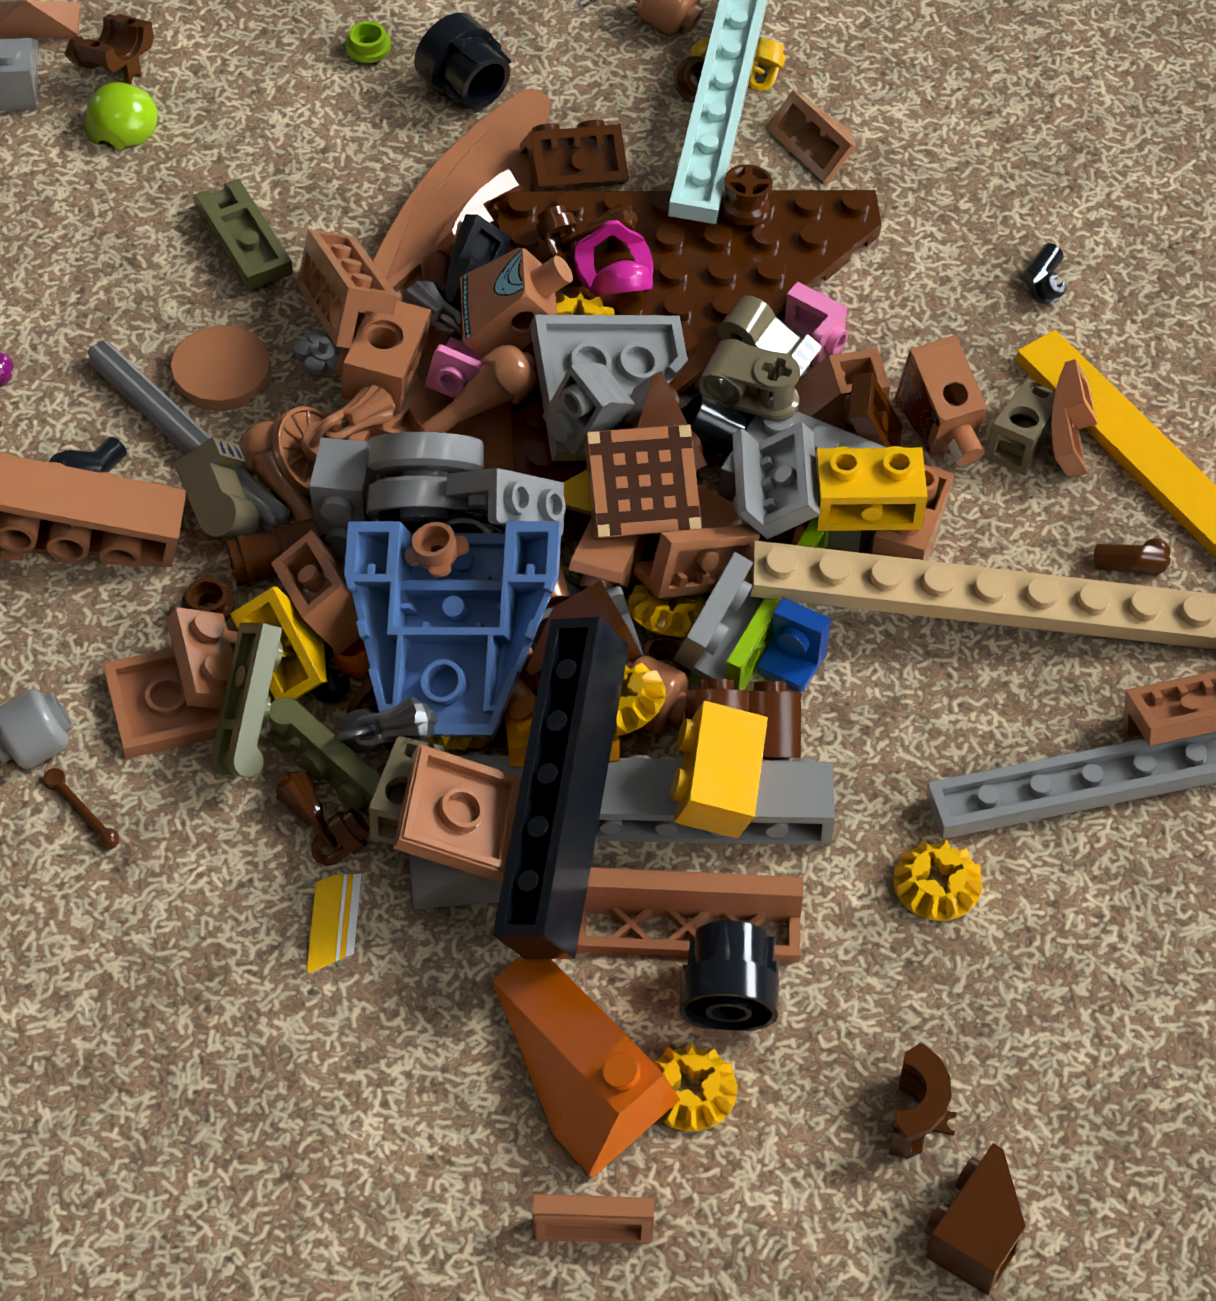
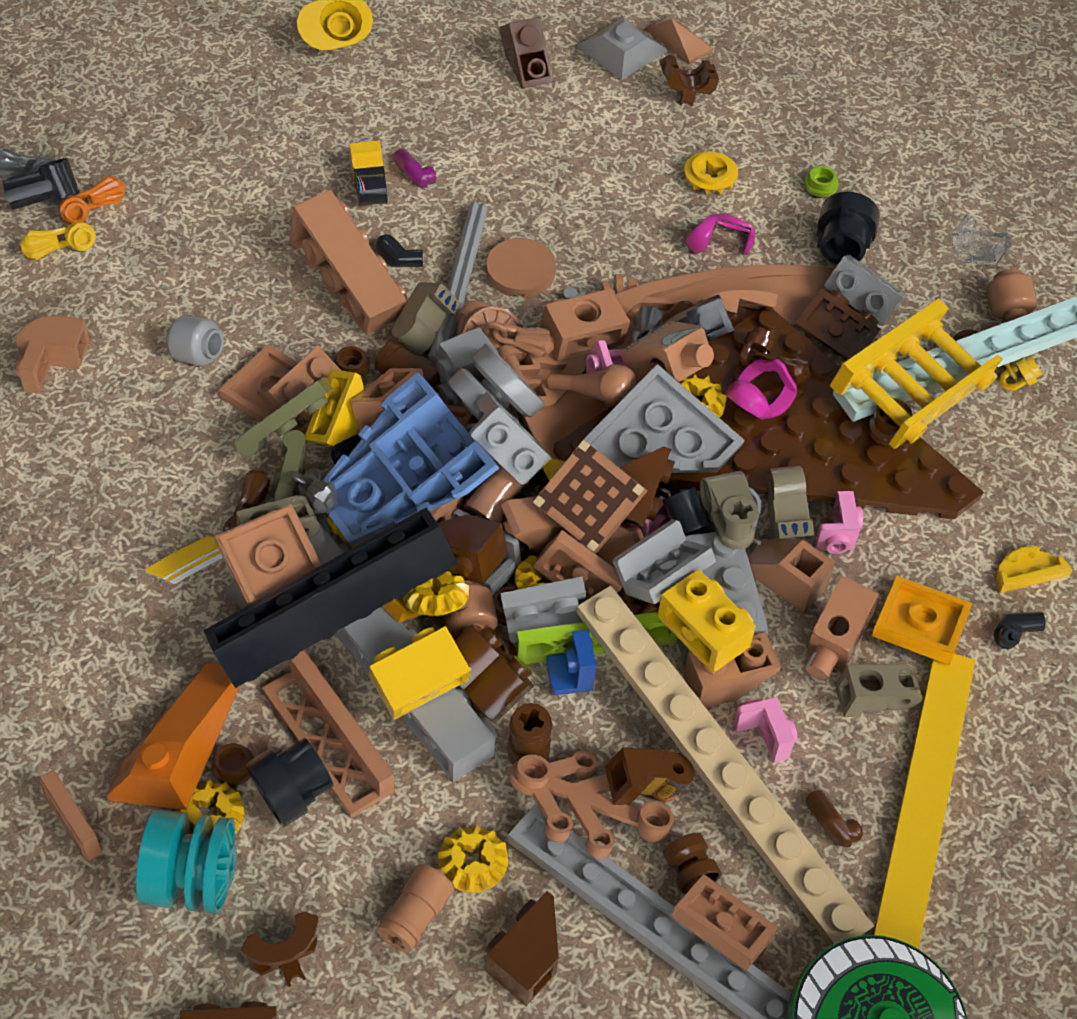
camera: 50 degrees right, 0 degrees up
(55, 780) = (178, 375): reddish brown hinge -> none
(120, 115) = (649, 113): lime hair -> none
(244, 234) = (621, 216): olive plate -> none
(251, 108) = (715, 163): none -> yellow gear
(340, 175) = (700, 236): none -> dark pink piece
(340, 281) = (611, 270): nougat fence -> none
(436, 548) = (440, 425): nougat plate -> none
(552, 102) = (865, 289): none -> light grey bracket
(586, 402) = (613, 428): light grey slope -> none
(651, 1027) = (230, 762): none -> reddish brown plate
(682, 142) = (905, 340): none -> yellow fence
(758, 1127) = (179, 860): none -> teal wheel
(812, 136) = (993, 433): nougat slope -> none
(854, 734) = (529, 732): none -> reddish brown piece
(870, 413) = (783, 598): reddish brown plate -> none
(904, 761) = (540, 779): none -> nougat plant
(961, 960) = (415, 907): none -> nougat piece
(976, 667) = (648, 774): none -> reddish brown leg
(985, 220) = (1029, 567): none -> yellow tile
(988, 330) = (922, 620): none -> light orange tile
(998, 532) = (769, 716): none -> bright pink bracket
(1071, 411) = (909, 704): nougat slope -> none
(1083, 695) = (691, 860): none -> reddish brown wheel
(1087, 890) = (528, 953): none -> reddish brown slope

